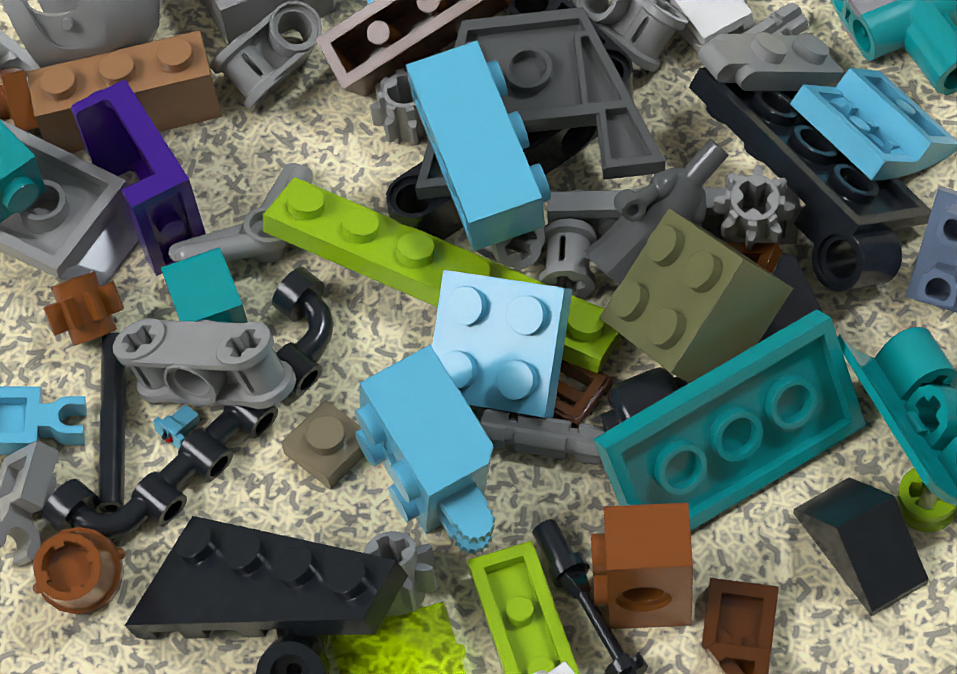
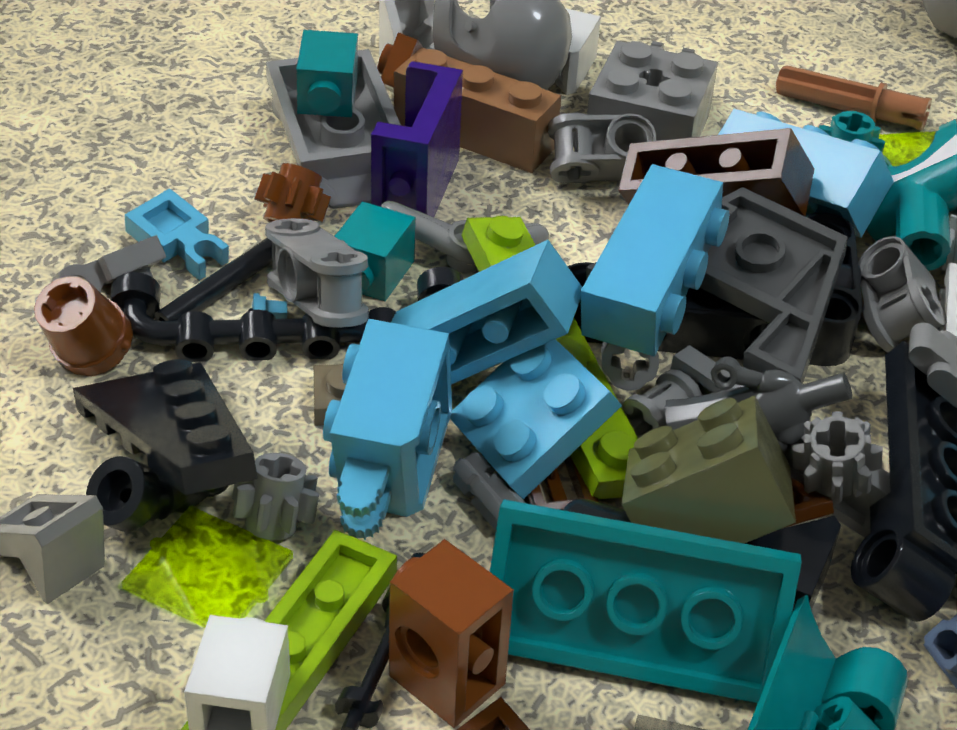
camera: 35 degrees right, 15 degrees down
(396, 299) = (500, 310): none -> medium azure brick

